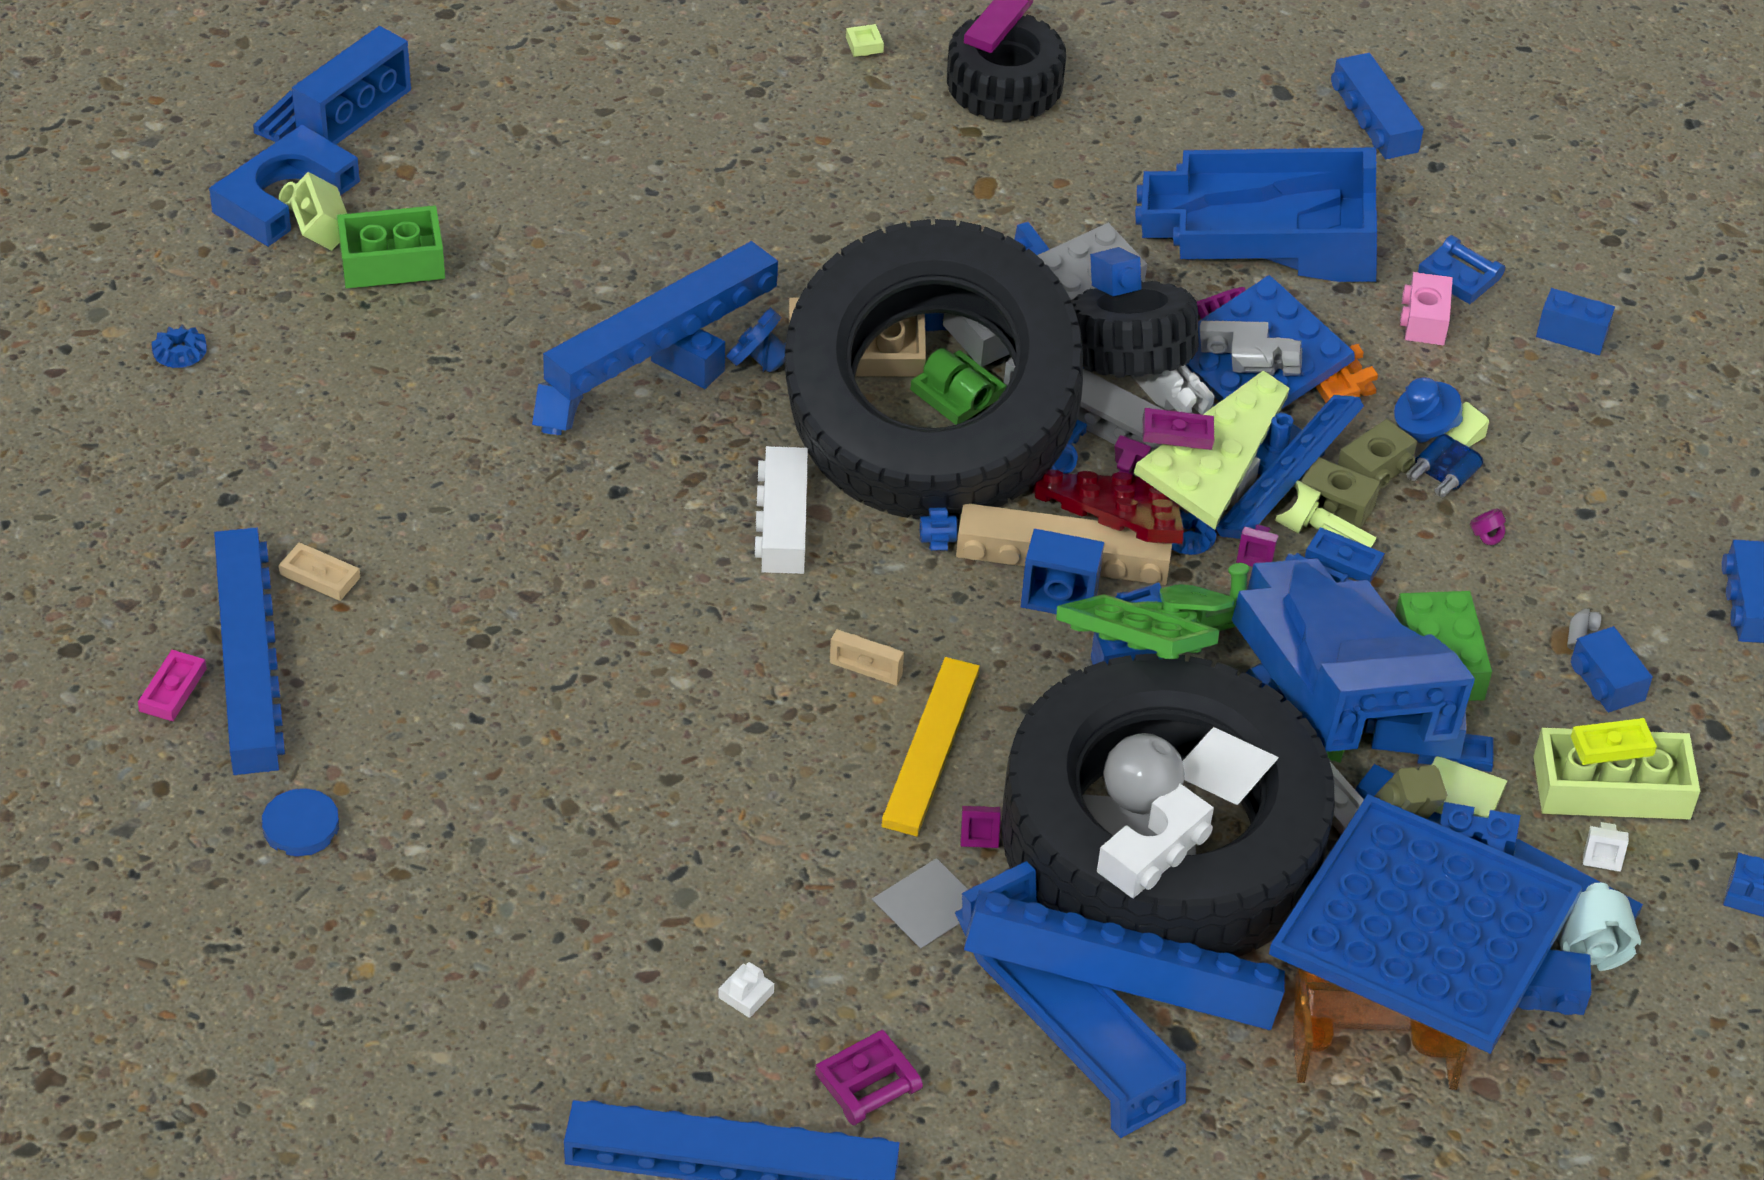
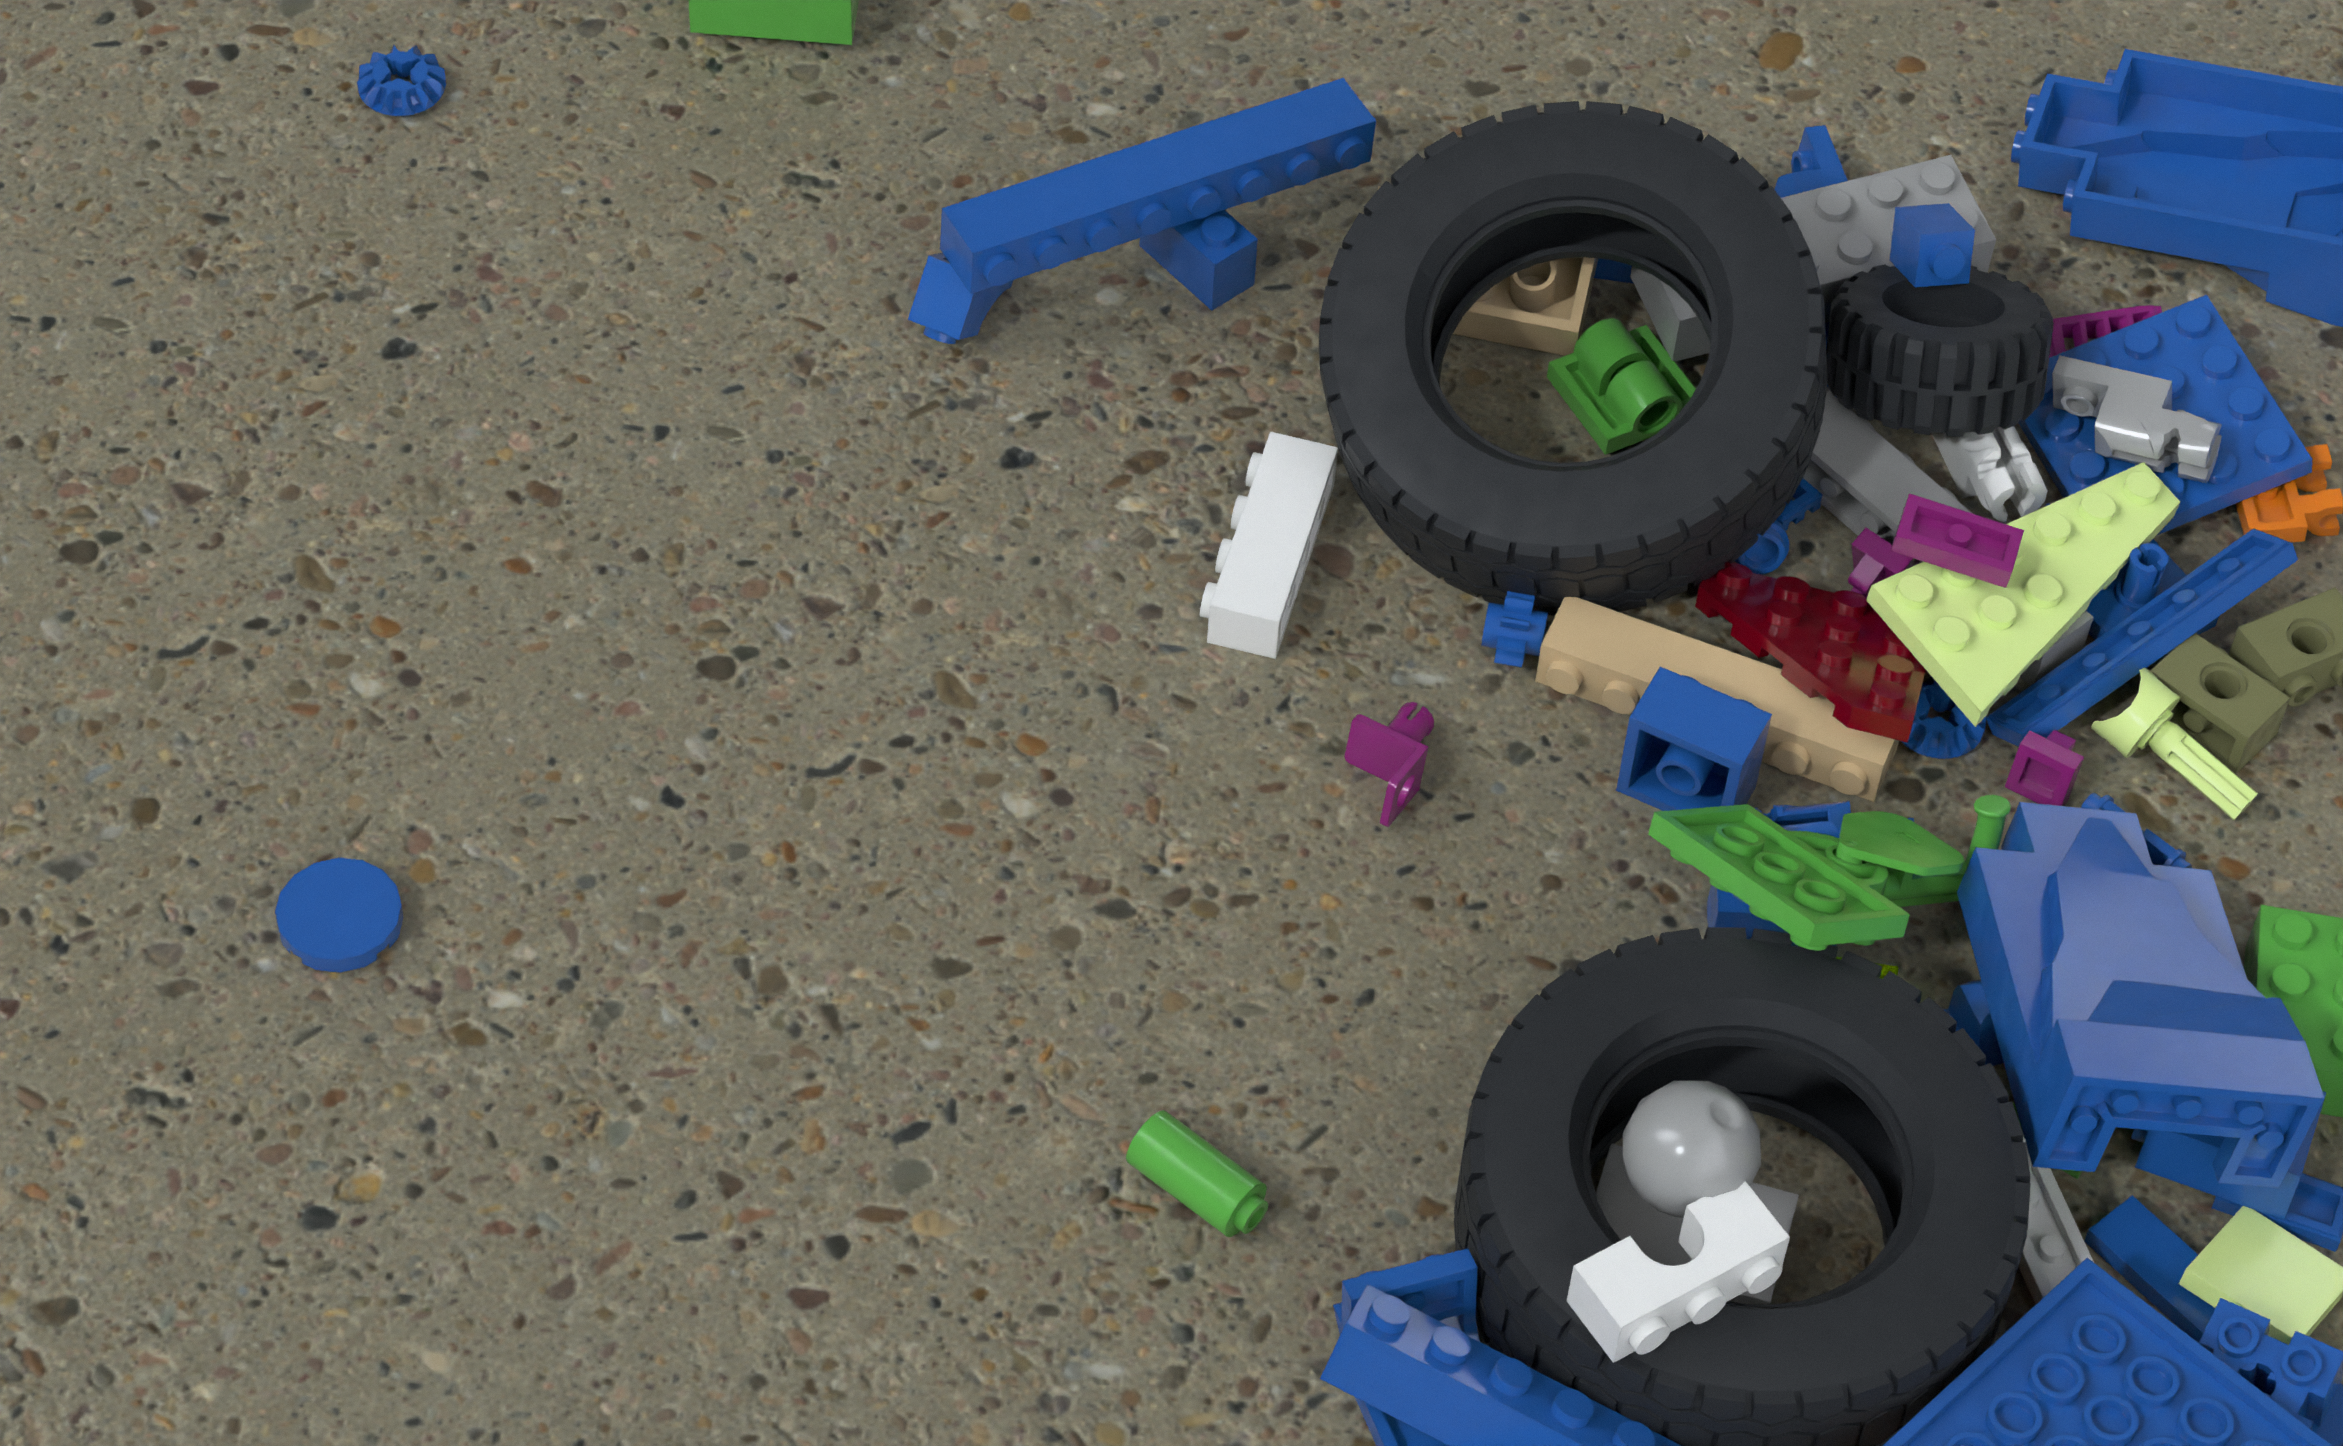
camera: 15 degrees right, 5 degrees up
(172, 685) = (211, 643): dark pink plate -> none
(247, 652) = (342, 613): blue brick -> none
(319, 571) = (498, 500): tan plate -> none
(746, 989) = (957, 1359): white tile -> none
(760, 344) = (1313, 247): blue plate -> none
(853, 860) = (1198, 1175): none -> bright green brick
(866, 657) = (1328, 826): tan plate -> none
(889, 610) = (1392, 754): none -> magenta bracket
(924, 902) = (1295, 1271): light grey sticker -> none
(930, 747) = (1389, 1003): yellow tile -> none
(980, 826) = (1425, 1162): magenta tile -> none
(1226, 765) = (1845, 1160): white sticker -> none
(1345, 555) = (2192, 814): blue plate -> none
(1415, 790) = (2170, 1270): olive brick -> none

